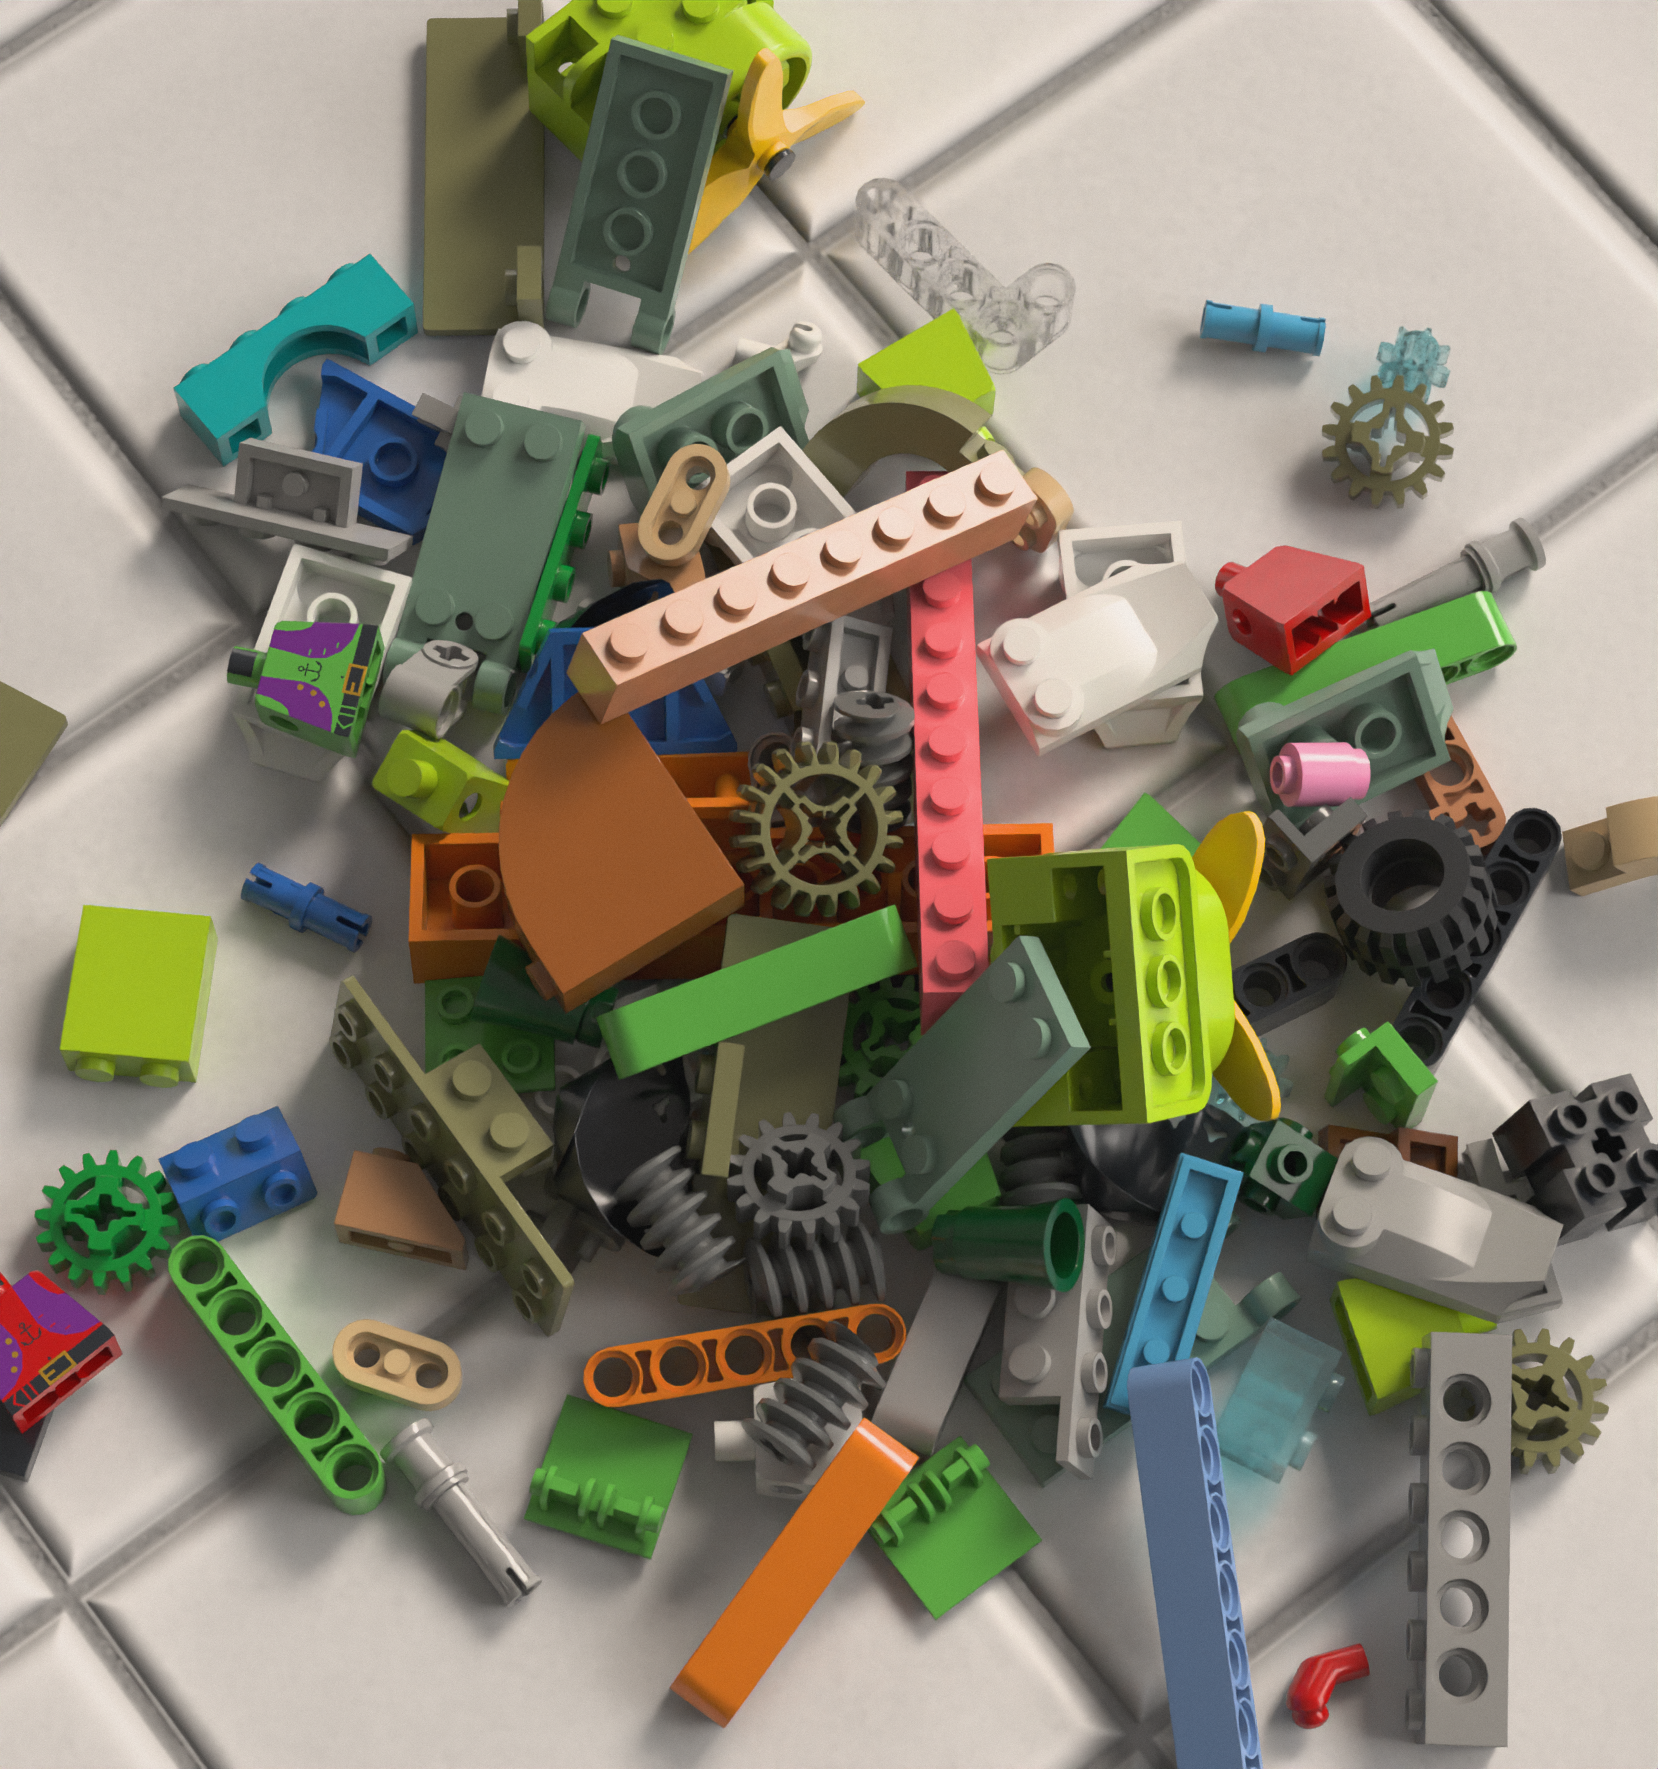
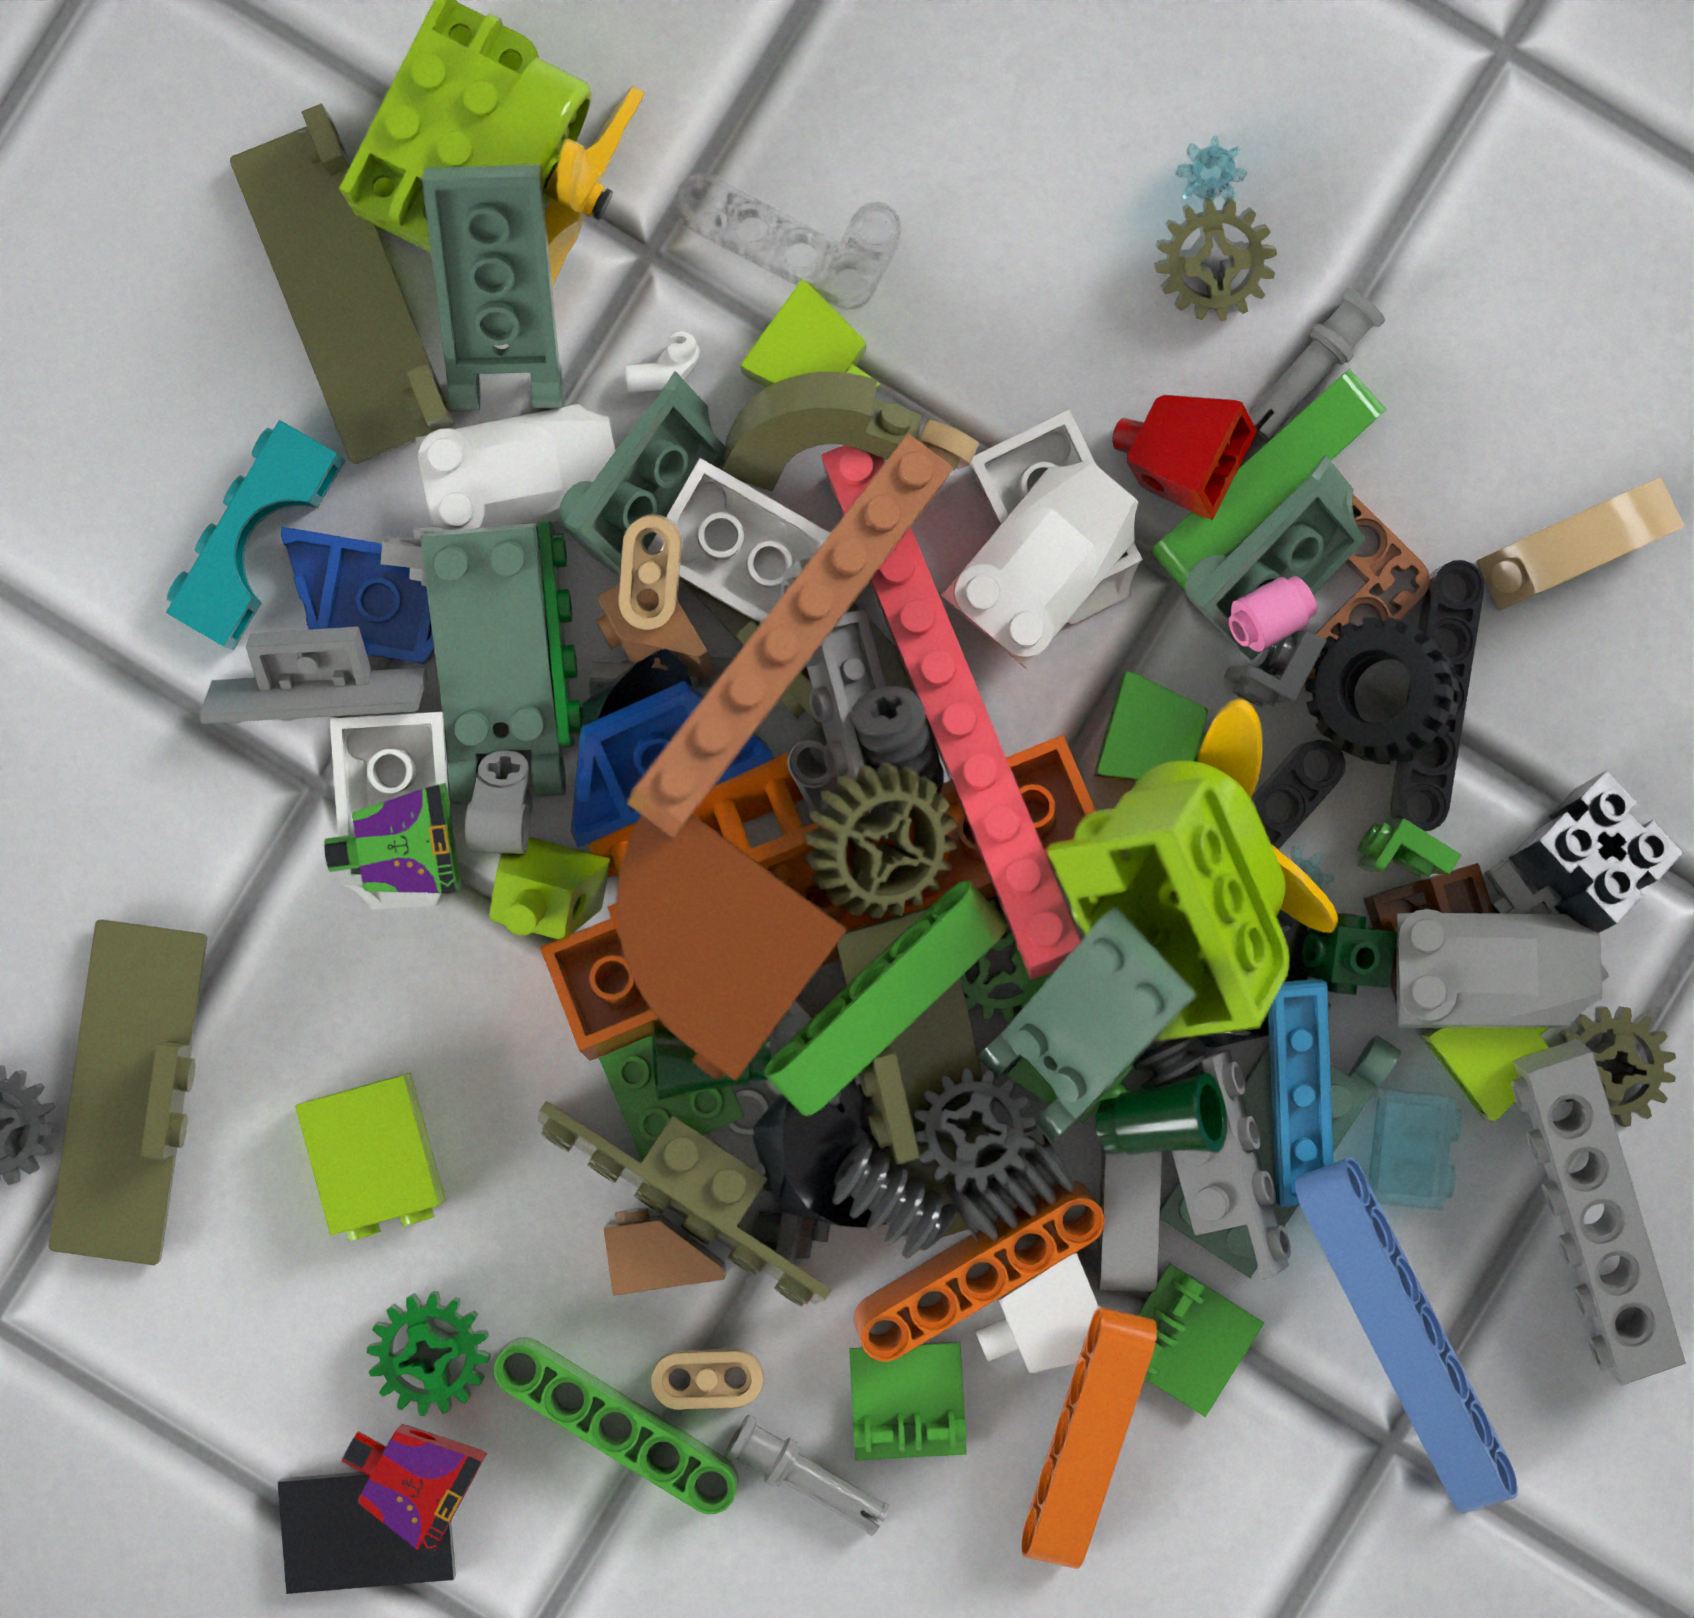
camera: 20 degrees left, 20 degrees up
(239, 1176) = (514, 1272): blue bracket -> none
(306, 907) = (473, 1023): blue pin -> none
(815, 1397) = (1058, 1307): dark grey piece -> none
(1262, 328) = (1069, 184): dark azure pin -> none
(1316, 1680) = (1515, 1352): red arm -> none

